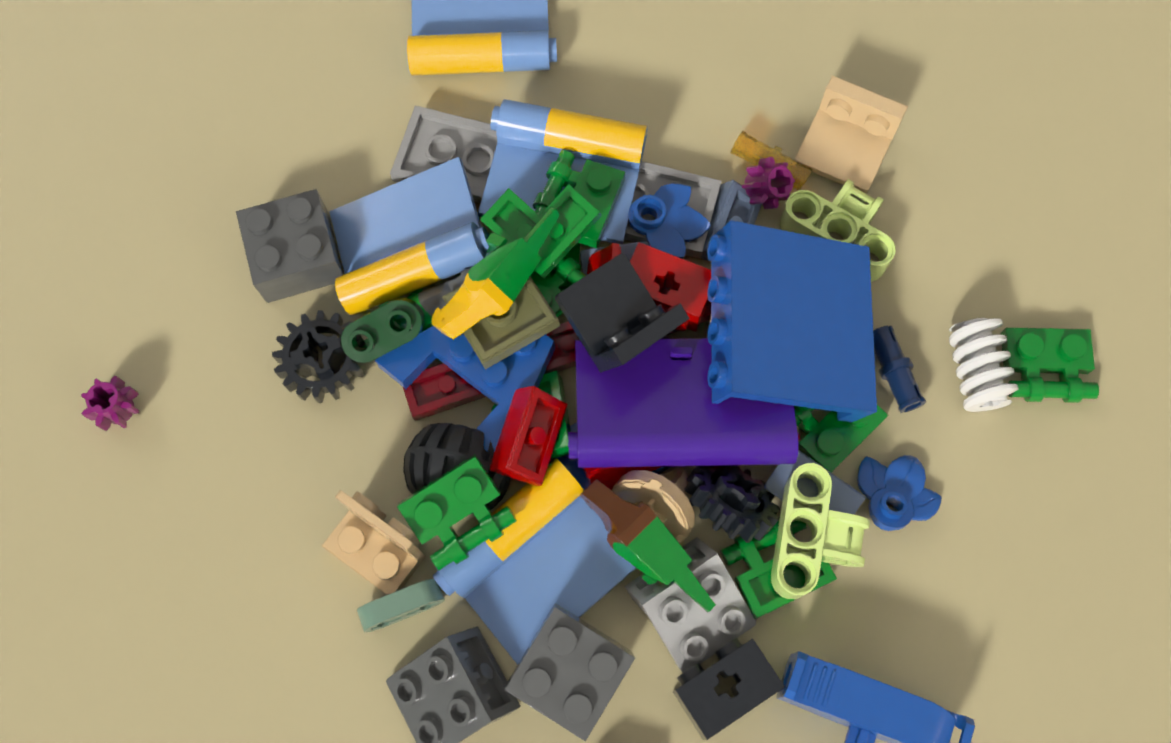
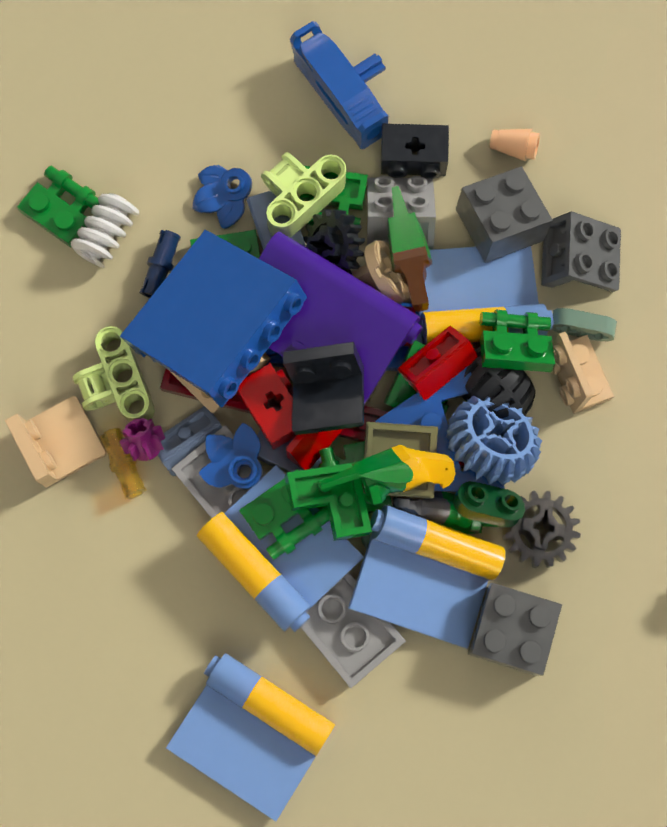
camera: 145 degrees left, 5 degrees up
(402, 389) = (492, 445): none -> medium blue gear

